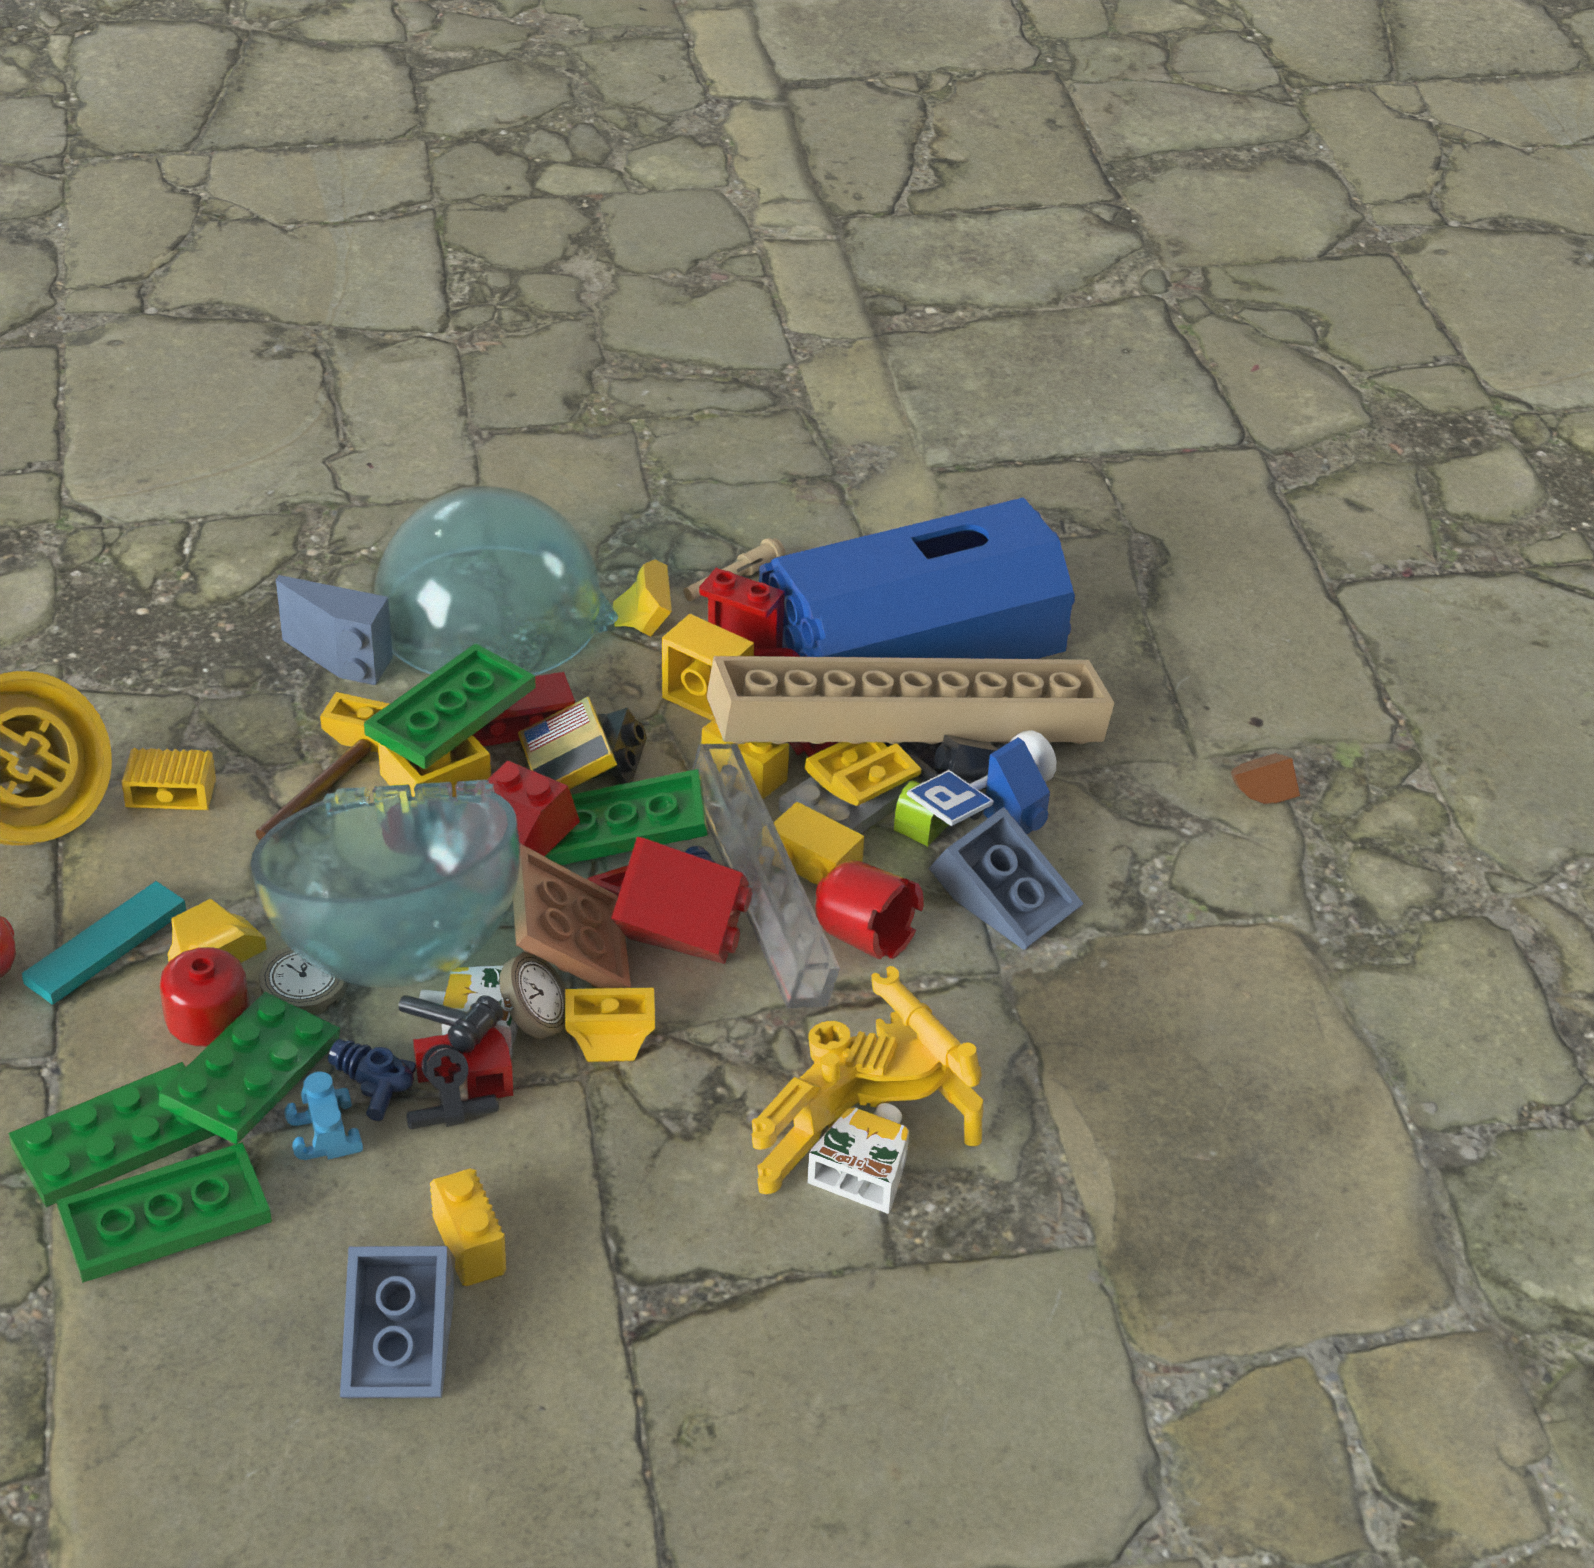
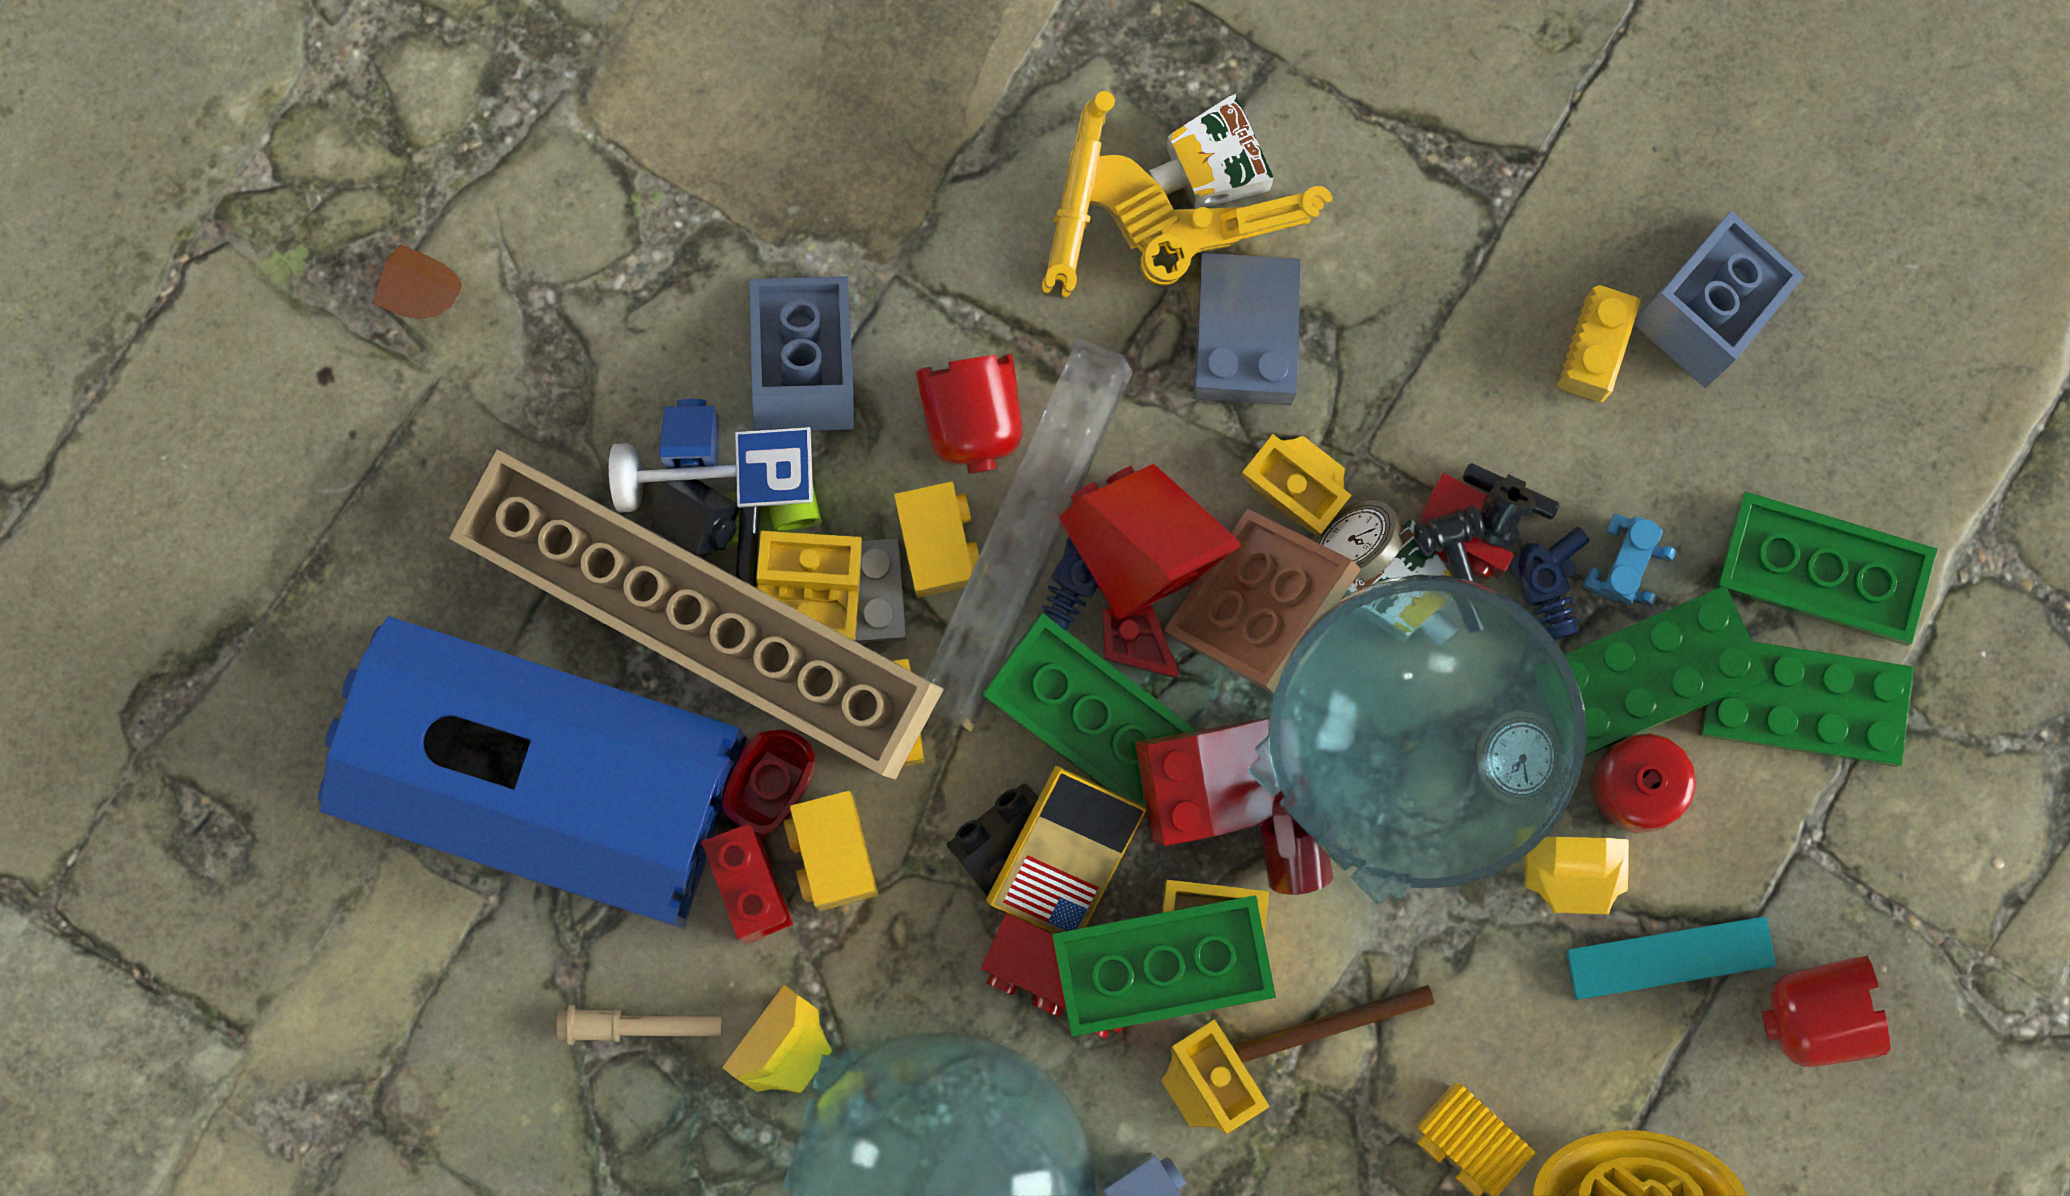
camera: 140 degrees left, 40 degrees up
(725, 1069) = (1247, 329): none -> sand blue slope

